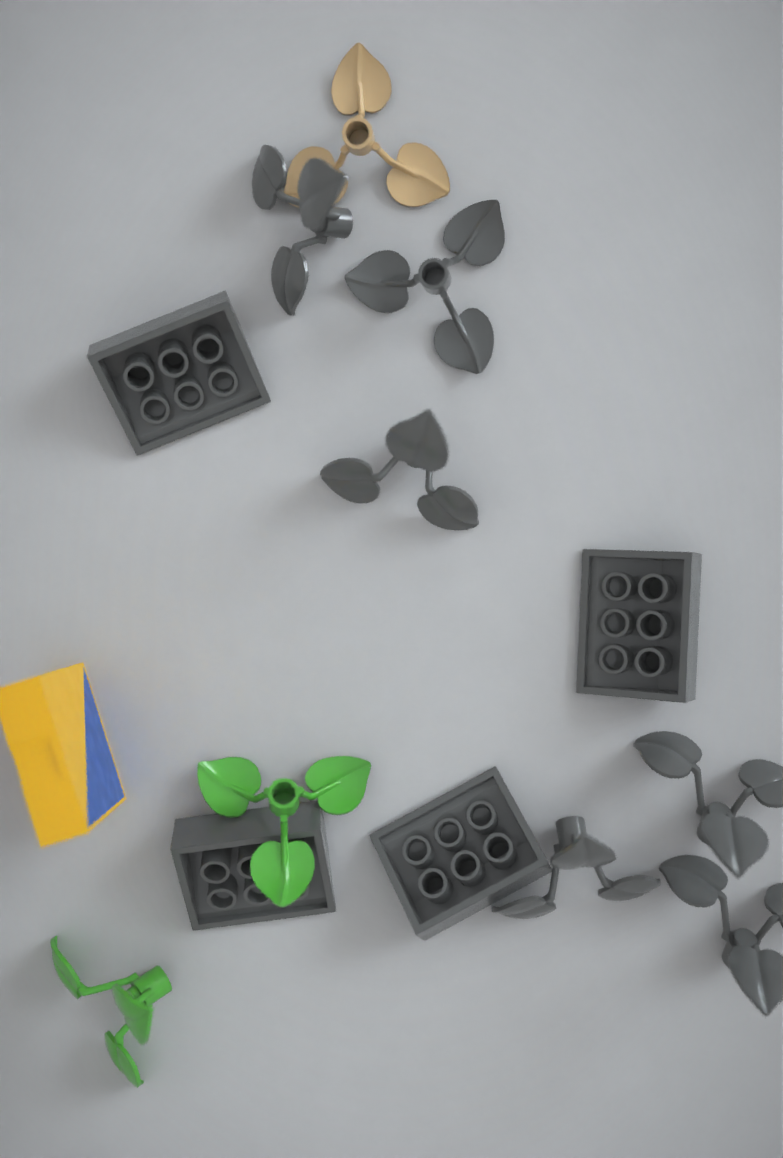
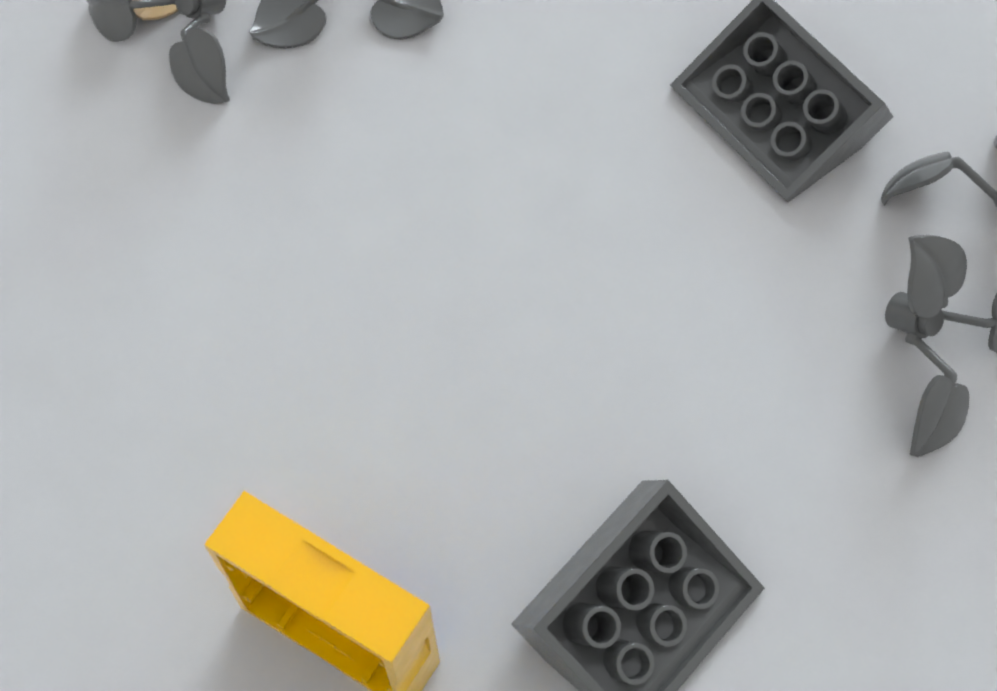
camera: 45 degrees left, 25 degrees down
(179, 373) = (158, 213): dark grey slope -> none
(283, 868) = (661, 544): bright green plant -> none
(420, 445) = (434, 58): dark grey plant -> none
(459, 854) = (830, 421): dark grey slope -> none

